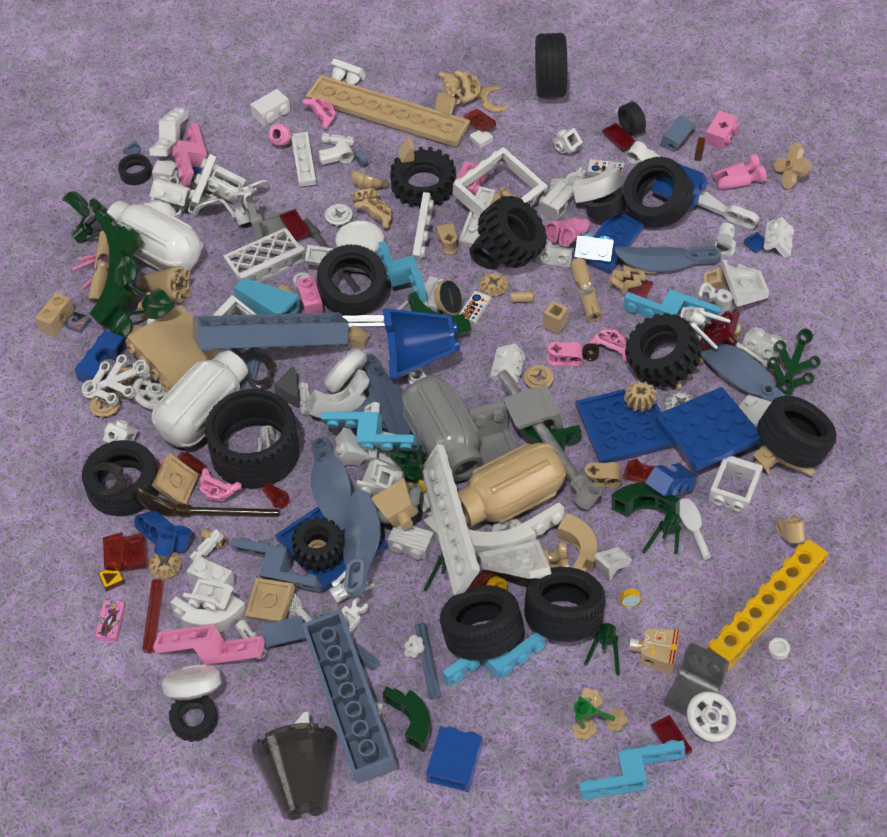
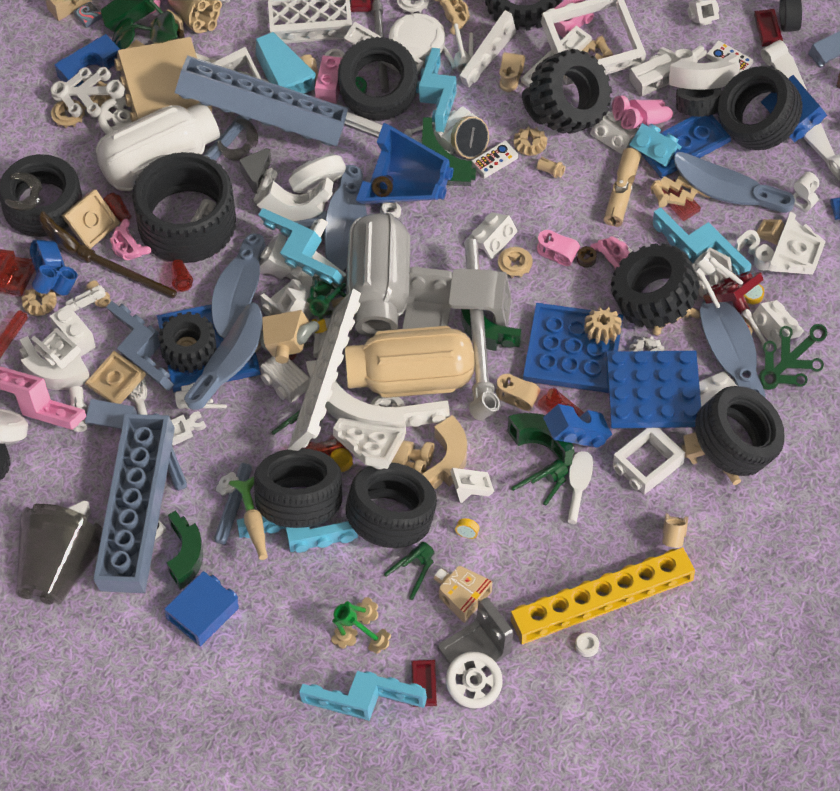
camera: 25 degrees right, 5 degrees up
(119, 431) = (65, 148): white brick -> none
(358, 338) = (355, 143): tan slope -> none
(405, 244) = (461, 57): none -> white plant
(408, 361) = (380, 188): none -> dark brown cone
(456, 663) = (252, 517): none -> tan piece
(555, 317) = (569, 204): tan brick -> none

